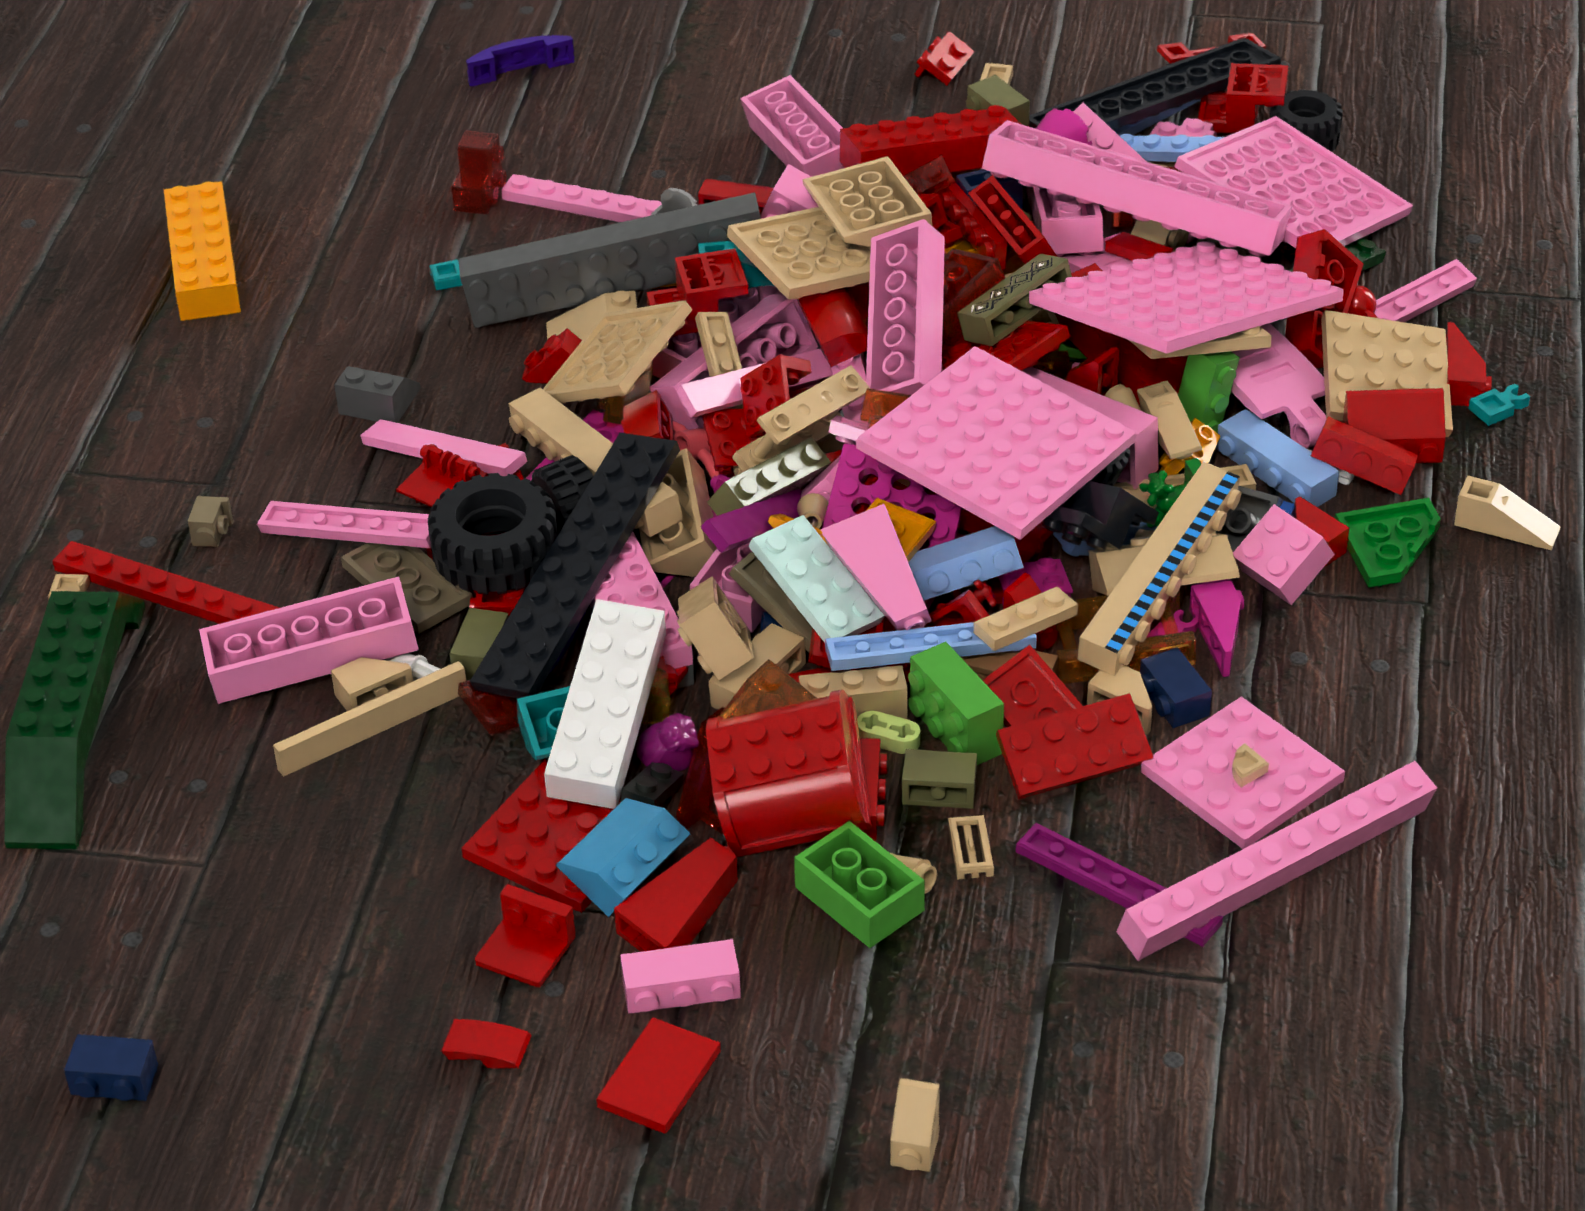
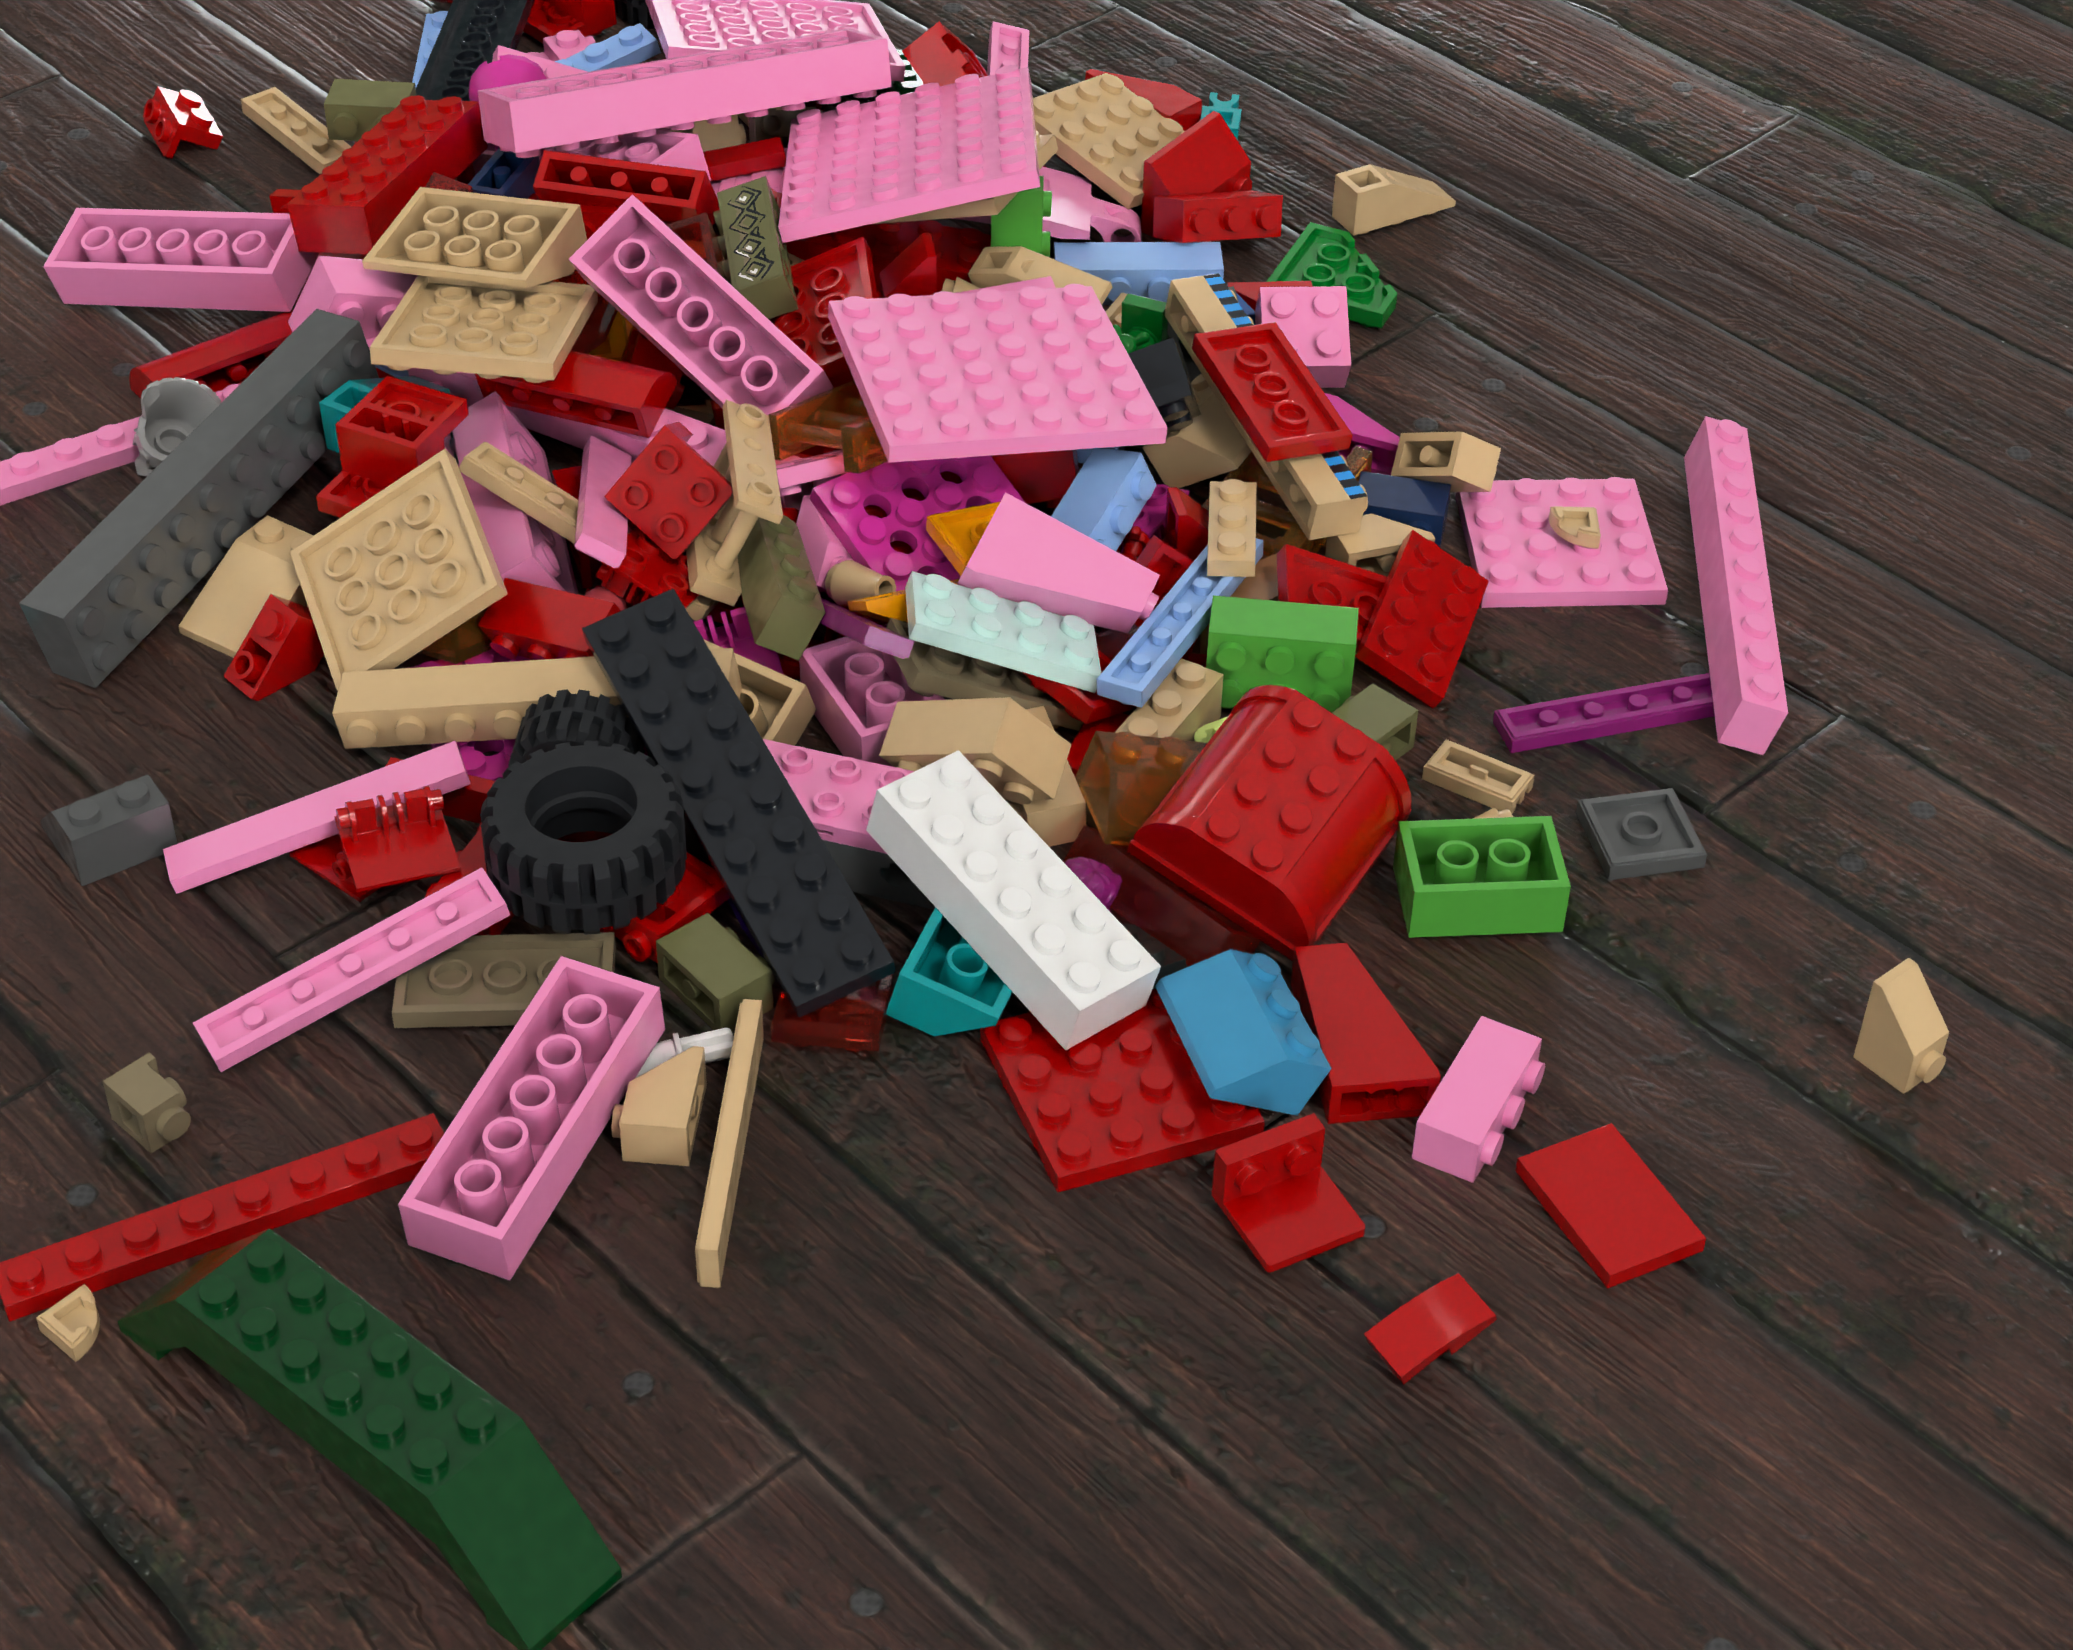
camera: 55 degrees left, 0 degrees up
(997, 940) = (1641, 834): none -> dark grey tile
(1143, 557) = (1271, 392): none -> red plate
(1226, 676) = (1447, 459): none -> tan brick

